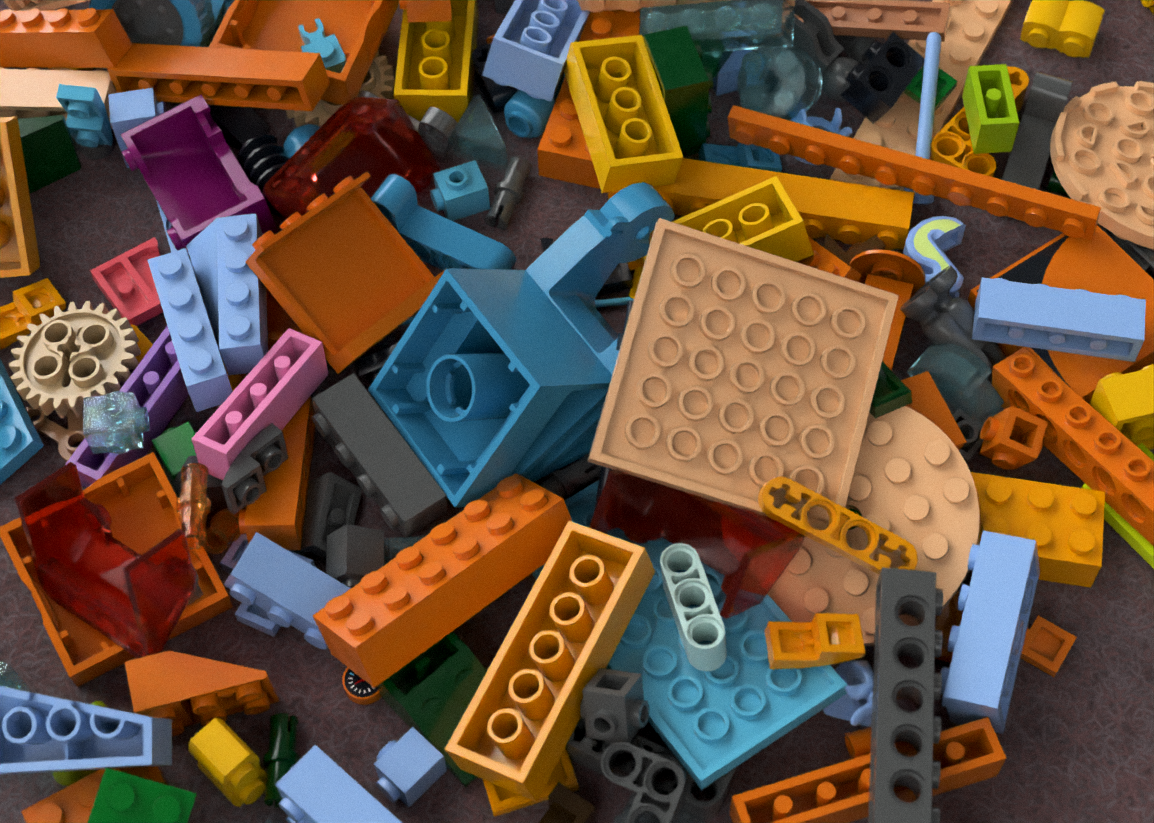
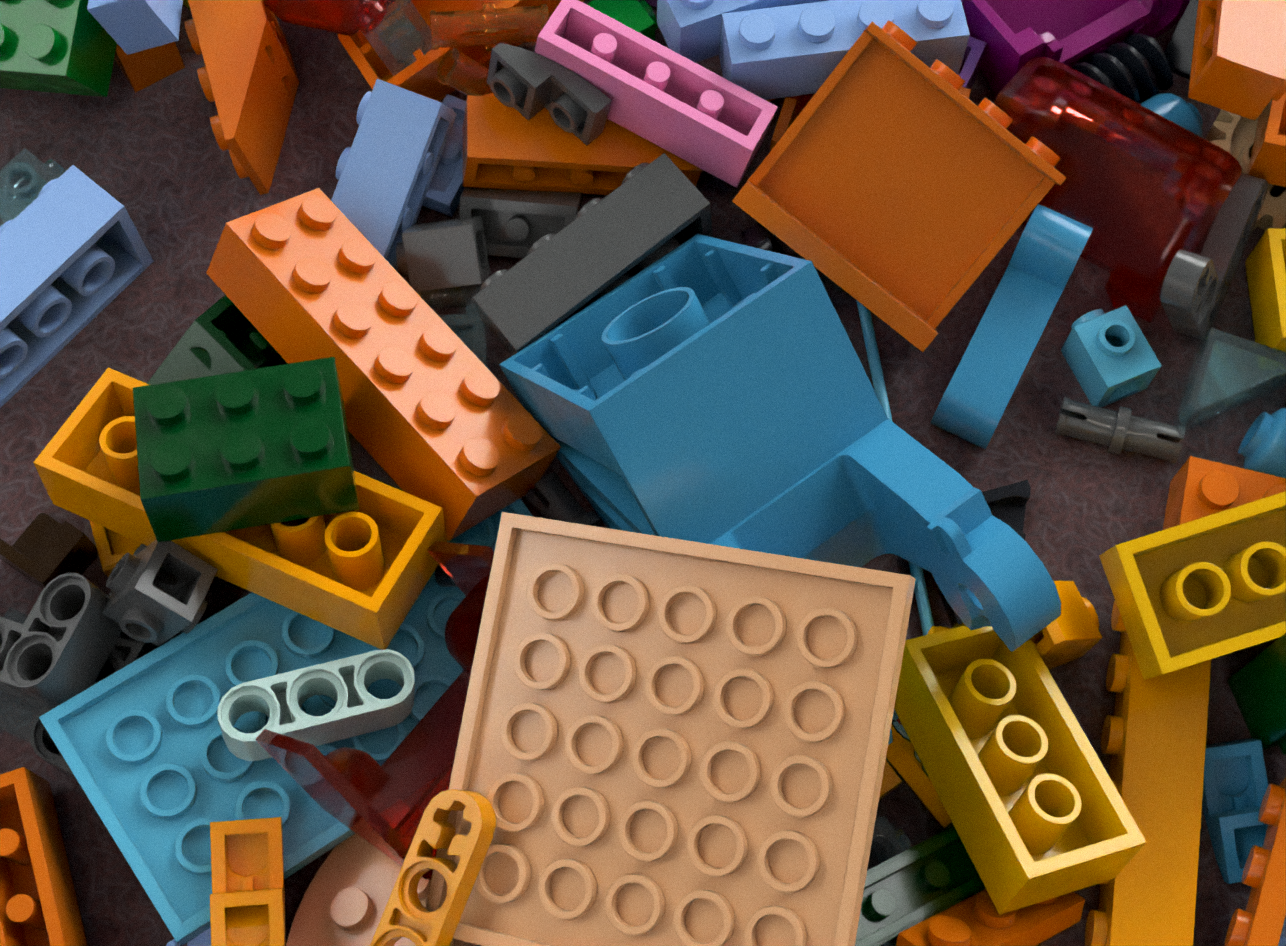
camera: 85 degrees right, 10 degrees up
(228, 763) = (142, 127): yellow brick -> none
(281, 754) = (170, 198): dark green pin -> none
(408, 767) = (133, 340): light blue brick -> none
(528, 628) = (243, 449): none -> dark green brick

